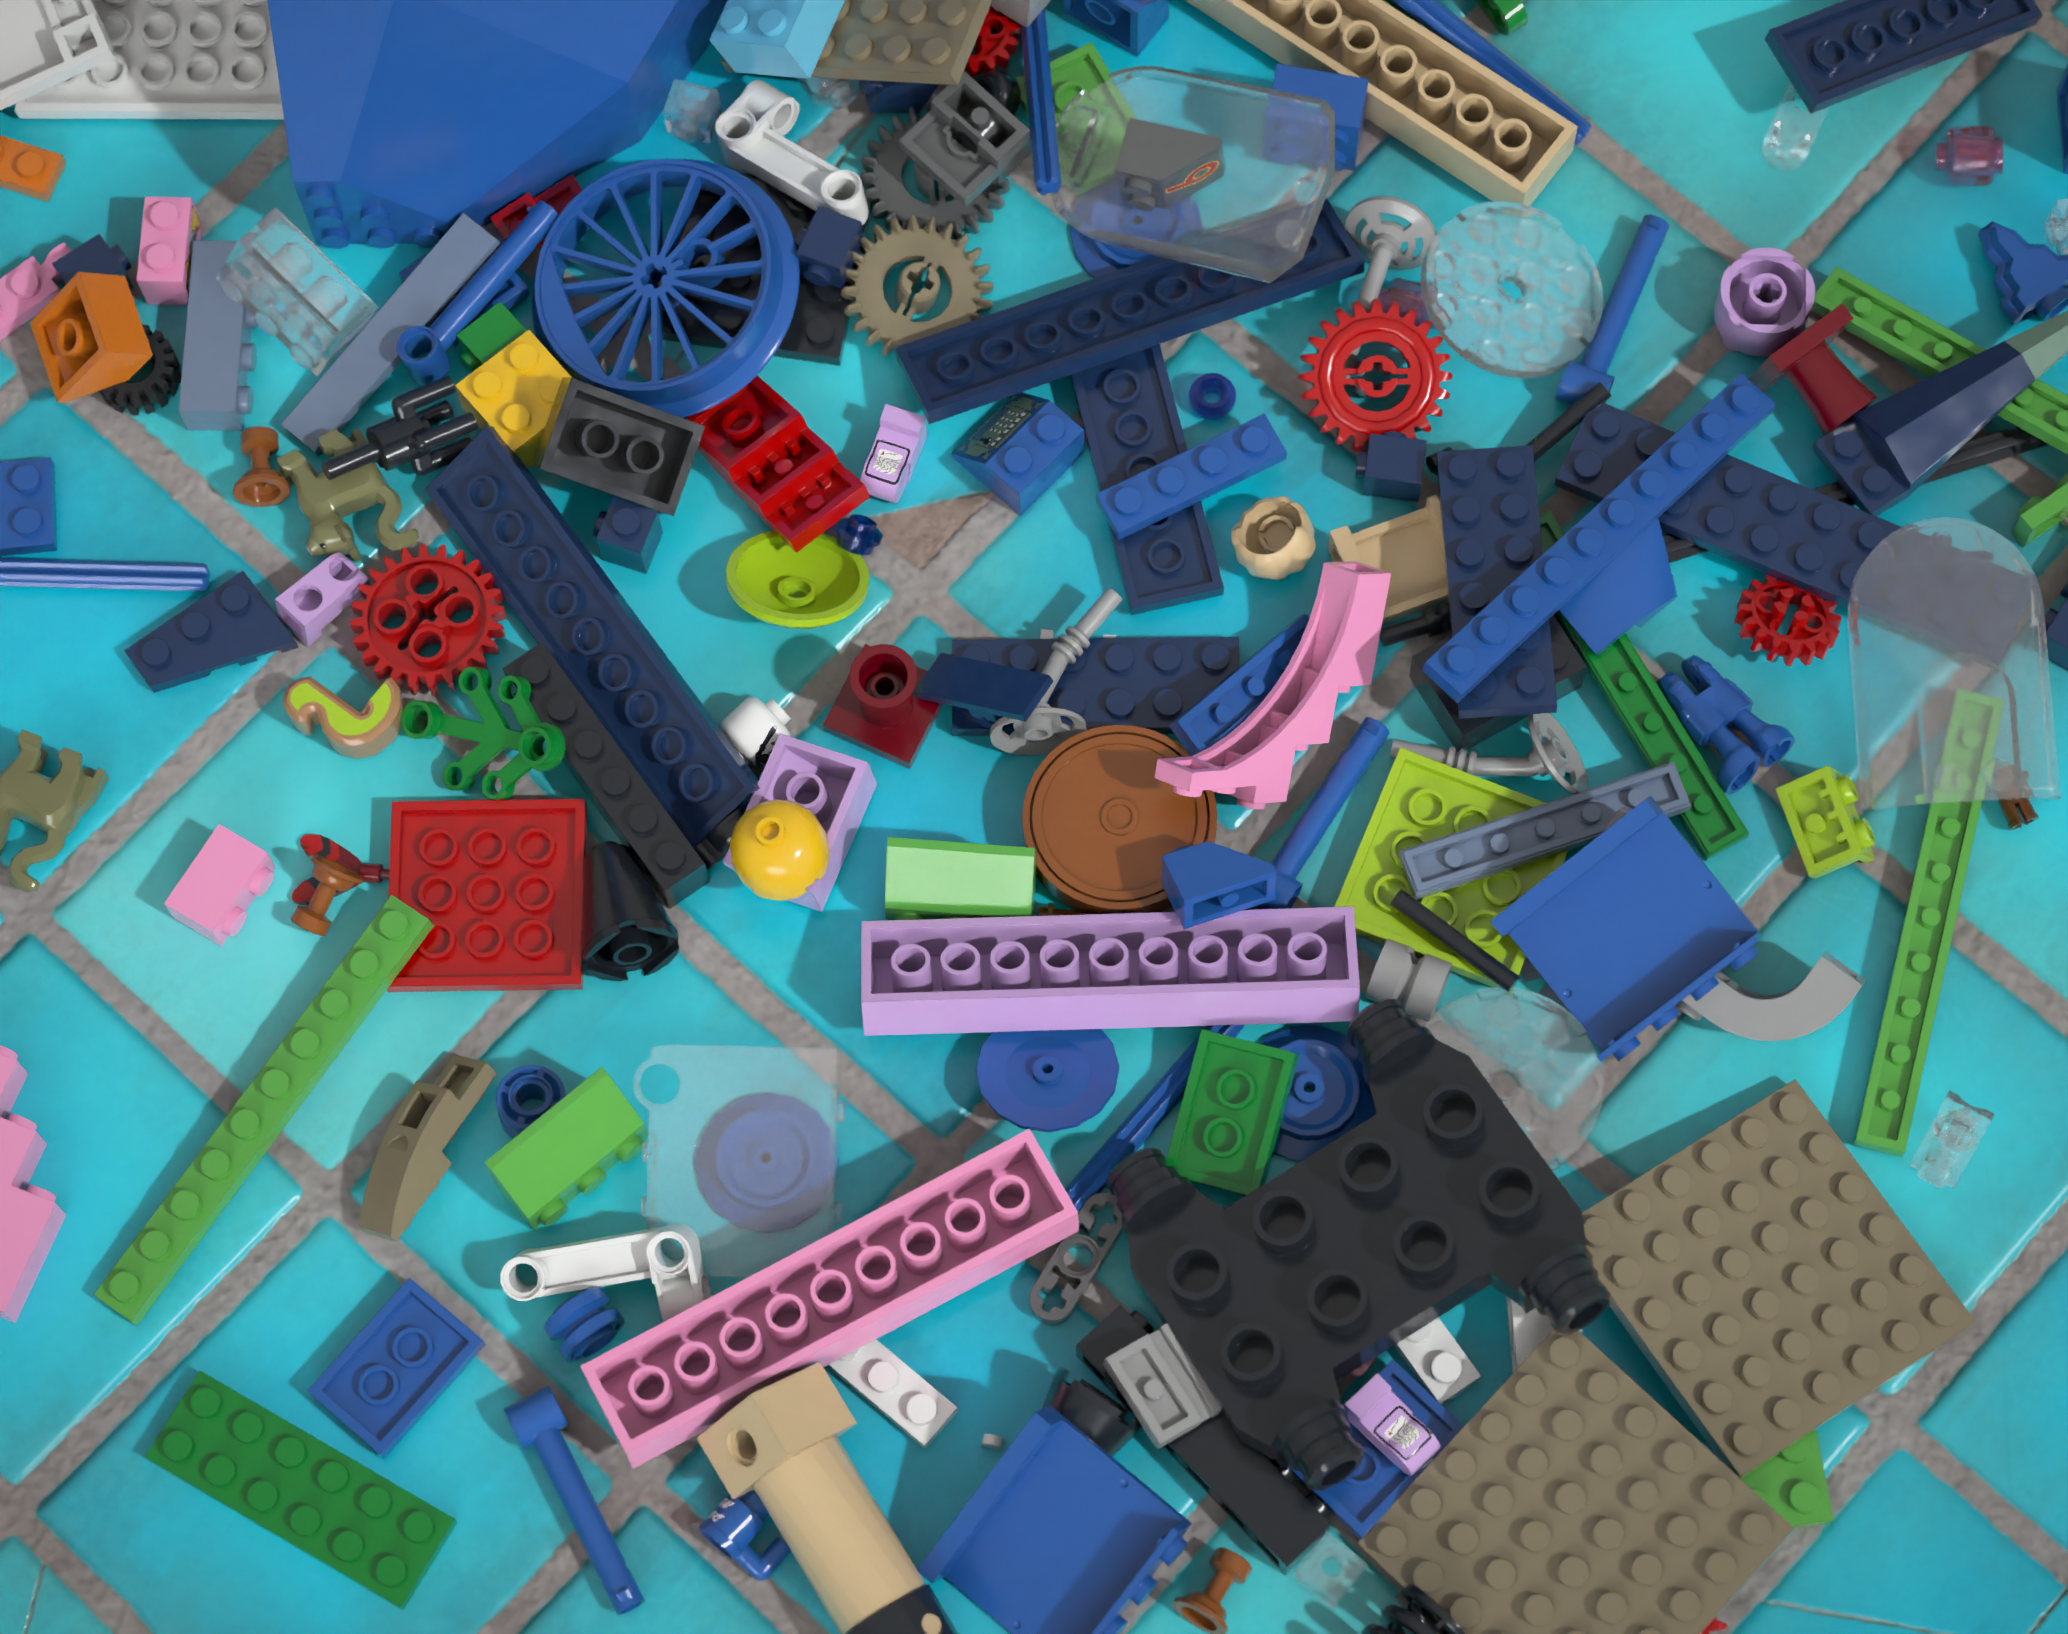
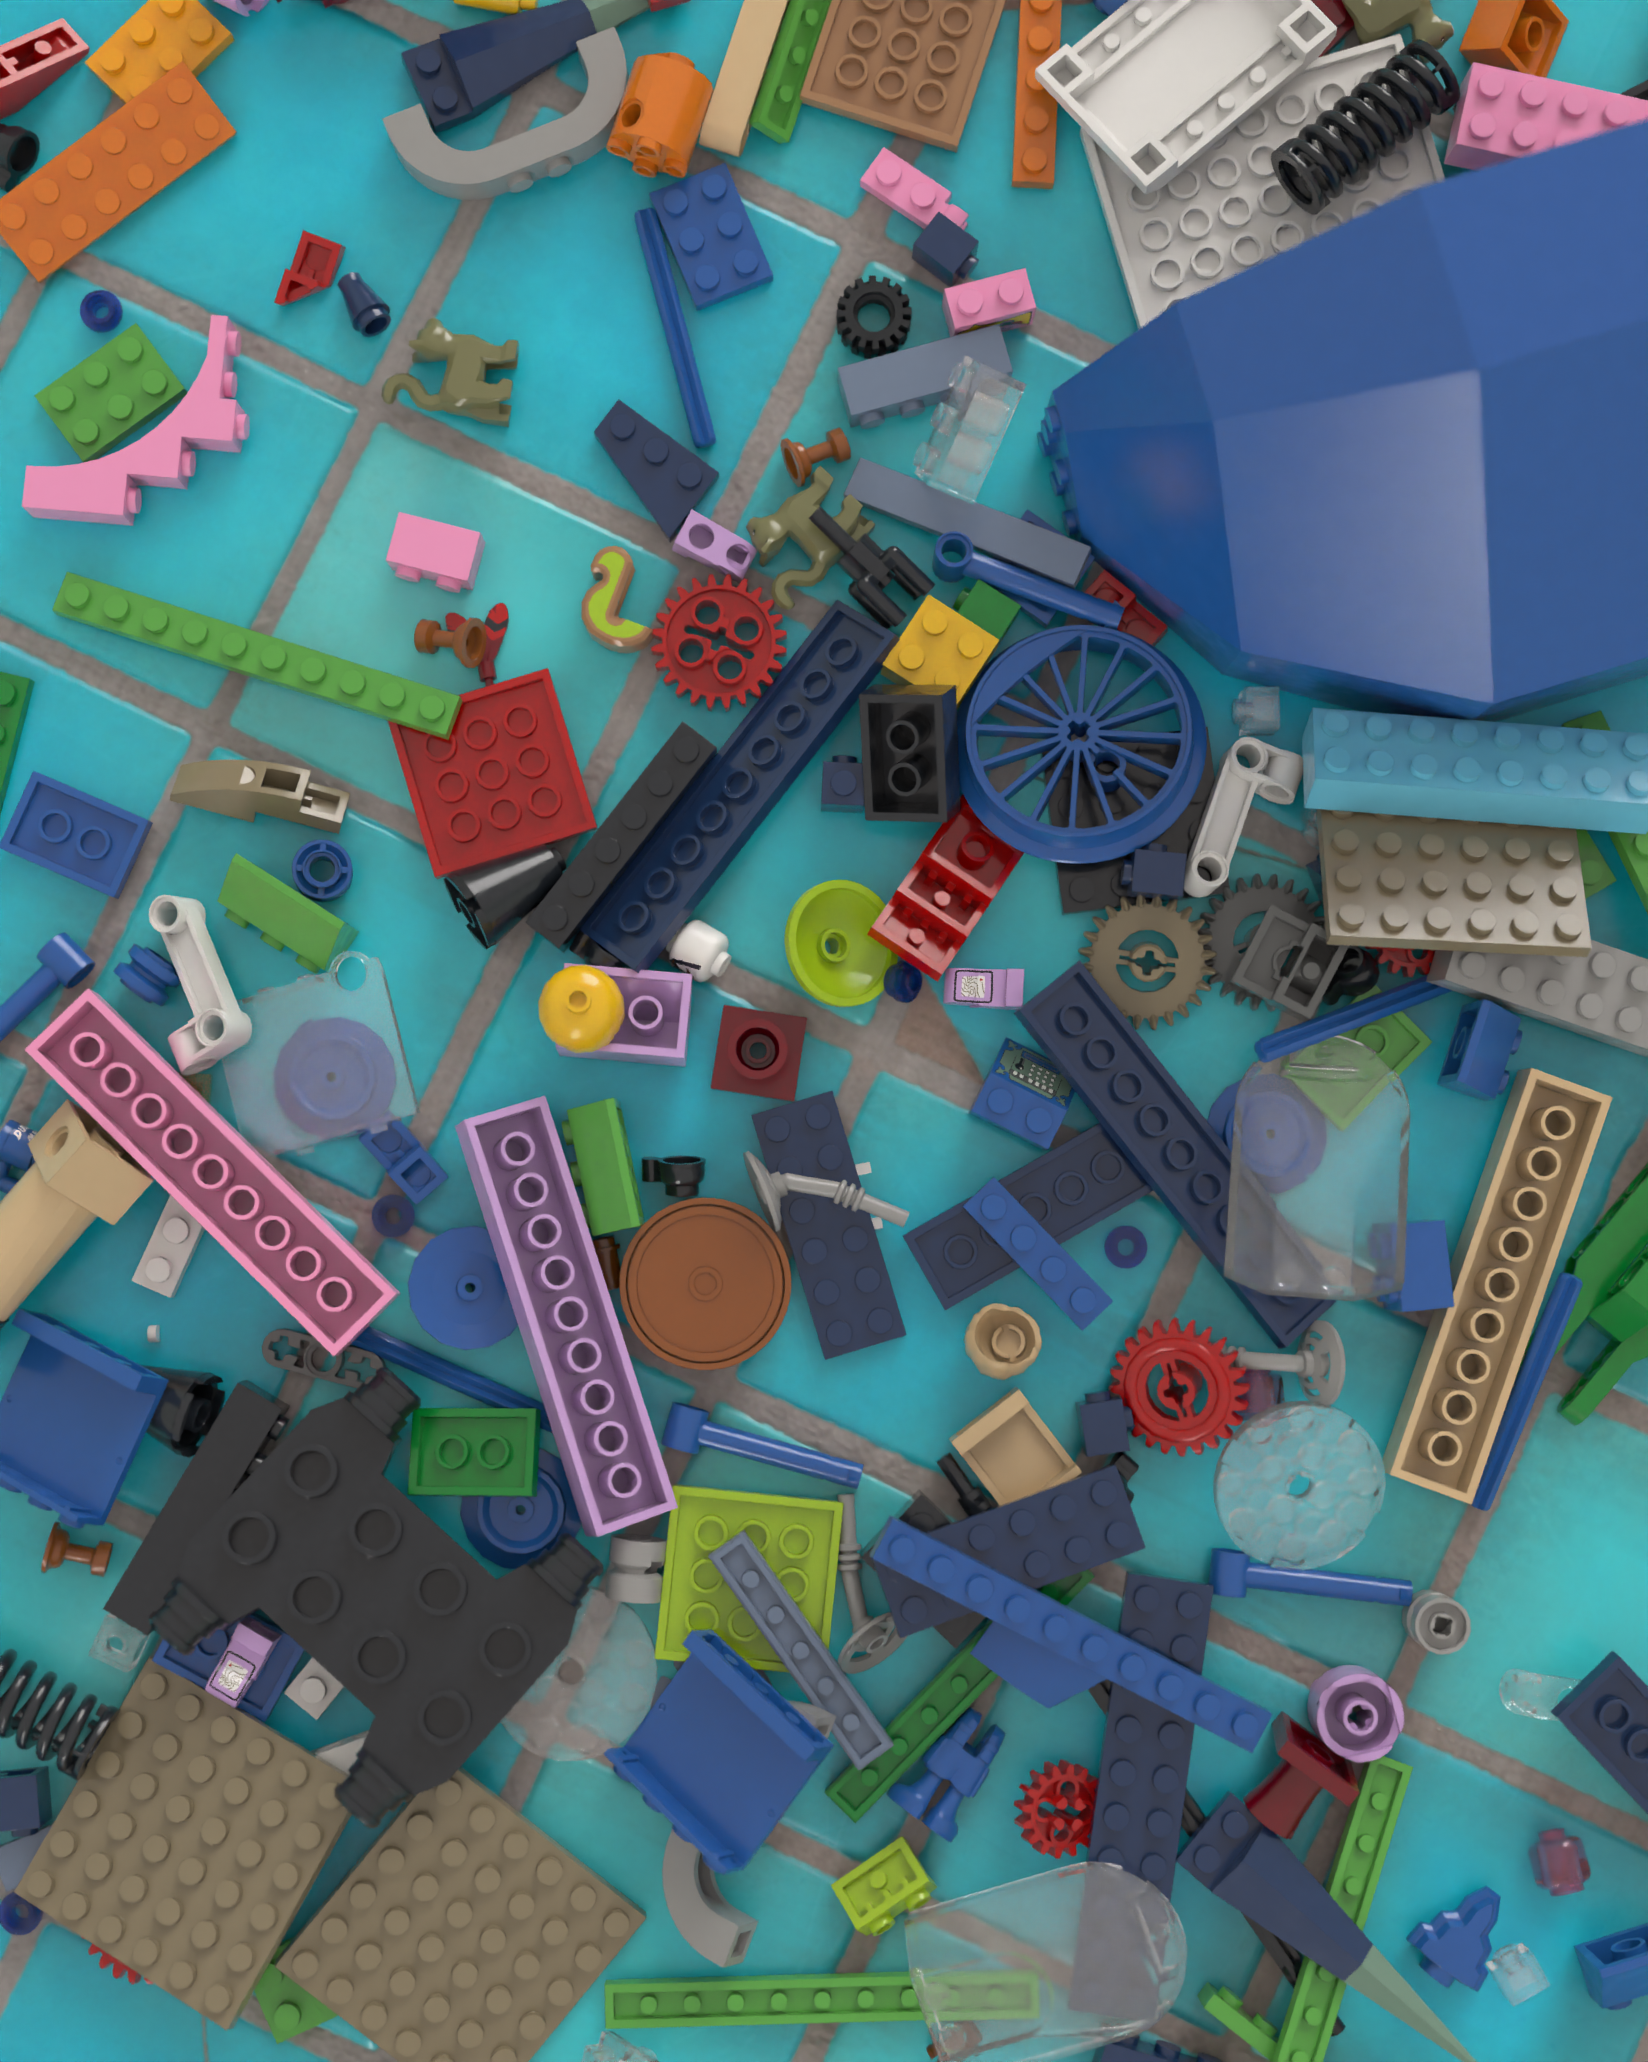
camera: 65 degrees right, 15 degrees up
(90, 336) = (880, 269): orange slope -> none
(492, 734) = (620, 775): green plant -> none
(884, 1109) = (405, 1160): none -> blue slope
(942, 1124) = (379, 1215): none -> clear blue plate
(983, 687) = (782, 1135): dark blue piece -> none
(993, 818) = (678, 1173): none -> black piece
(1162, 1386) = (215, 1465): light grey plate -> none
(1165, 164) = (1314, 1146): dark grey slope -> none
(1215, 882) = (659, 1383): blue slope -> none
(1239, 692) = (855, 1362): blue plate -> none
(1299, 710) = (846, 1409): bright pink arch -> none
(1455, 940) = (679, 1599): black bar -> none
(1568, 420) = (1182, 1563): black bar -> none
(1691, 200) = (1436, 1622): none -> light grey wheel

